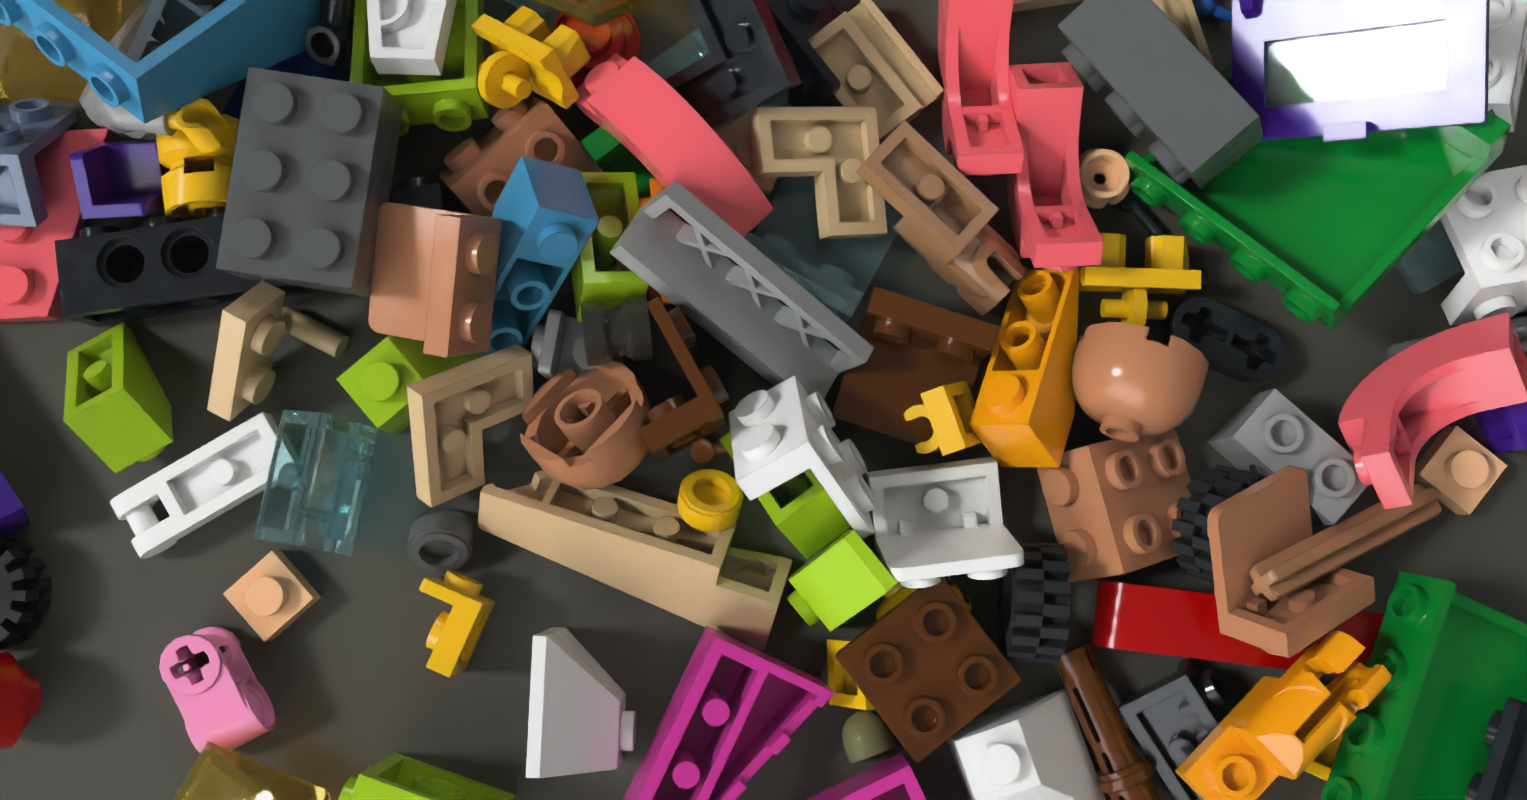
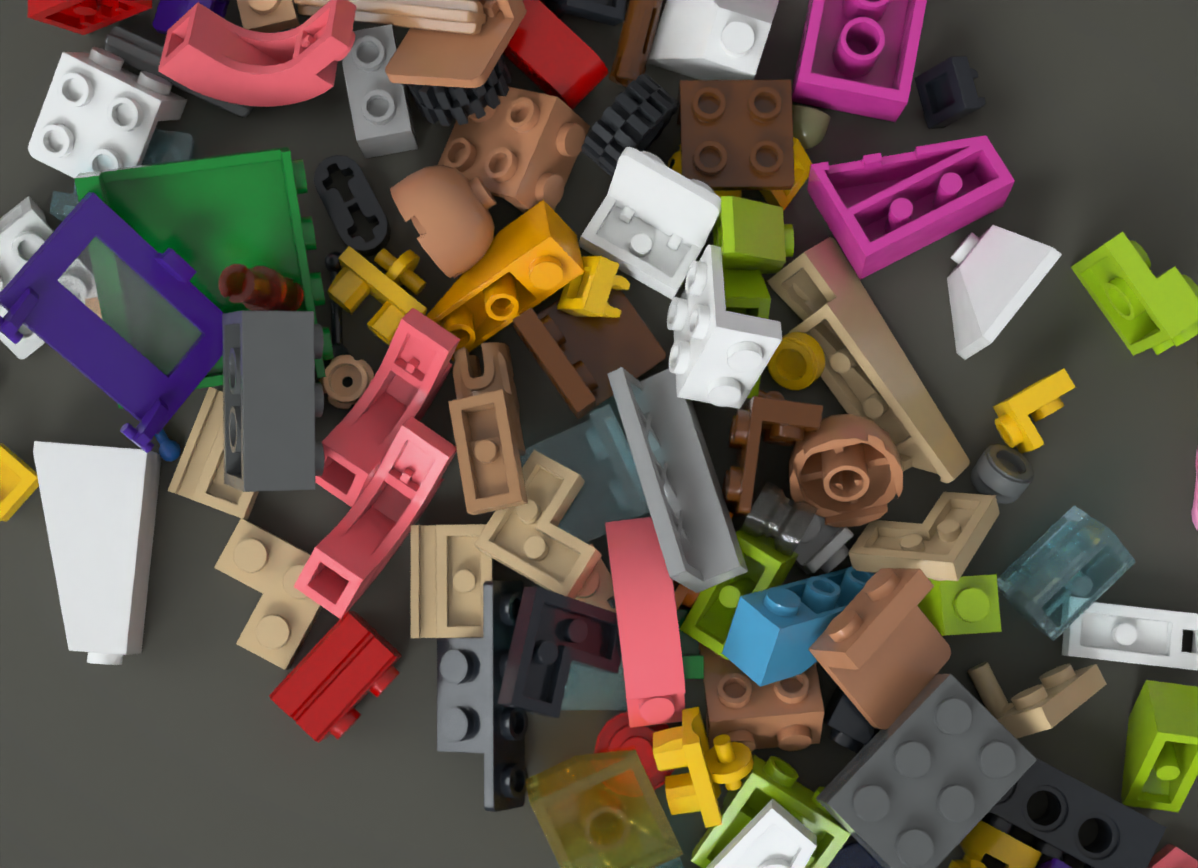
camera: 145 degrees left, 0 degrees up
(272, 595) = (1147, 523): light nougat plate -> none
(1254, 167) = (260, 288): none -> clear red pin

